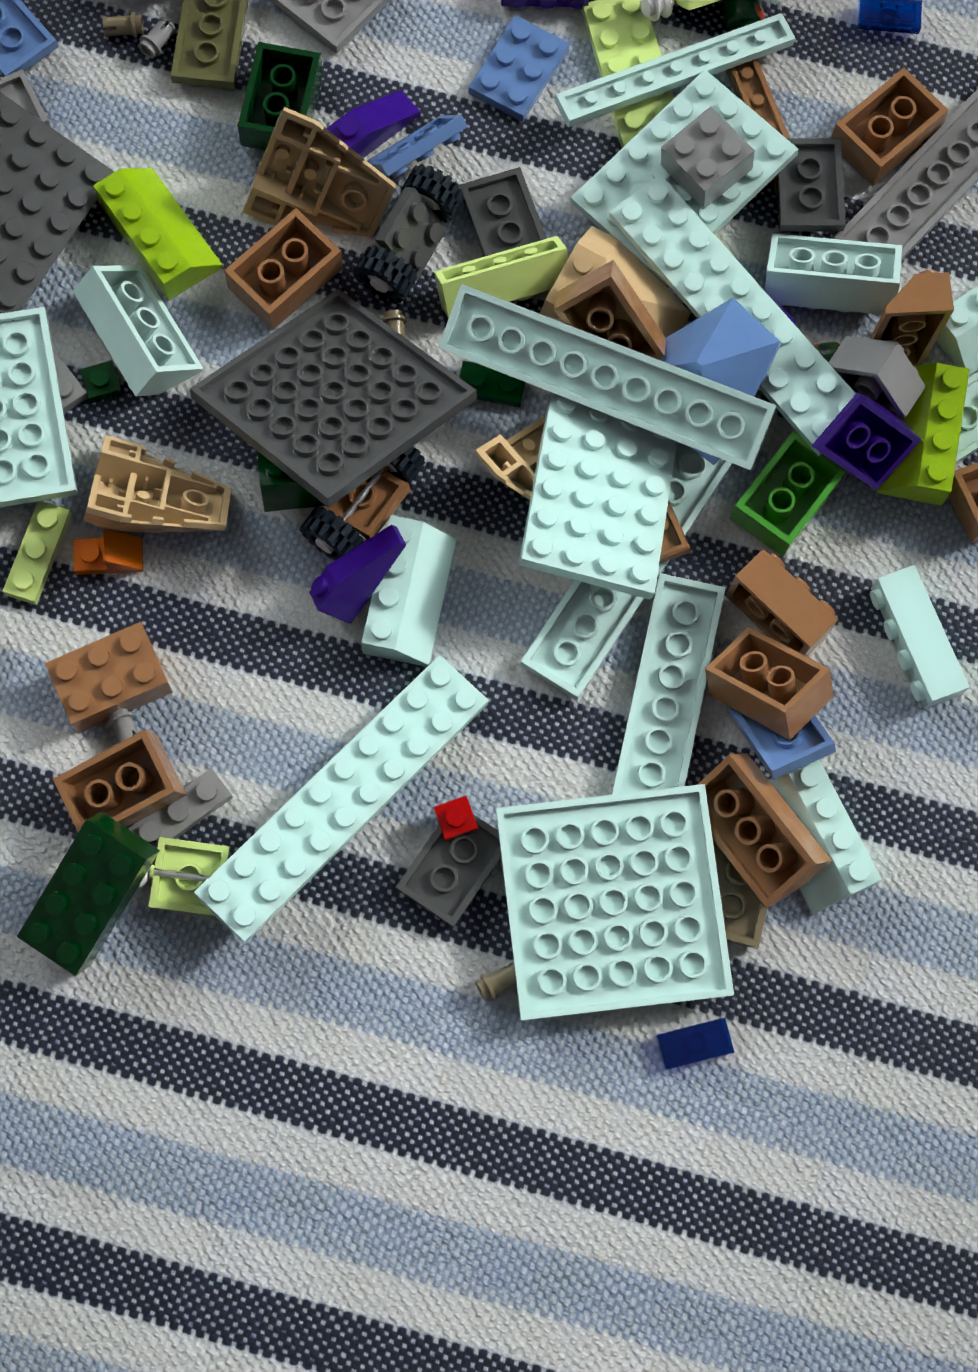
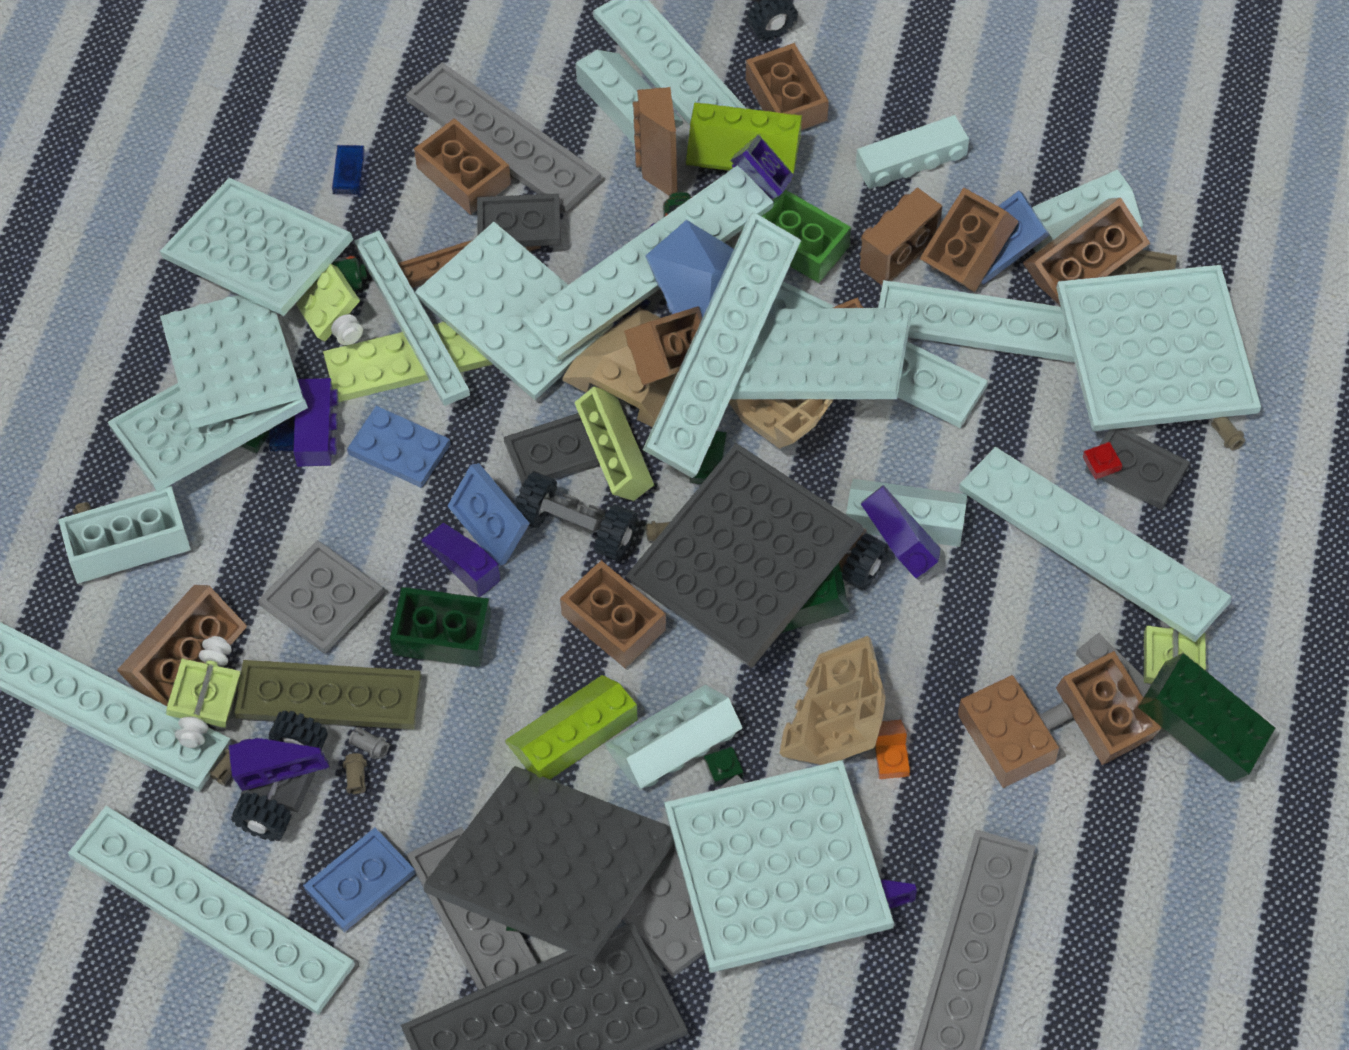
camera: 85 degrees left, 15 degrees down
(37, 552) = (896, 806): yellowish green plate -> none
(319, 177) = (524, 591): tan wedge -> none
(694, 1043) = (1256, 301): clear blue plate -> none
(707, 157) = (511, 279): light grey brick -> none
(832, 273) = (601, 203): light aqua slope -> none
(879, 372) = (701, 162): light grey brick -> none

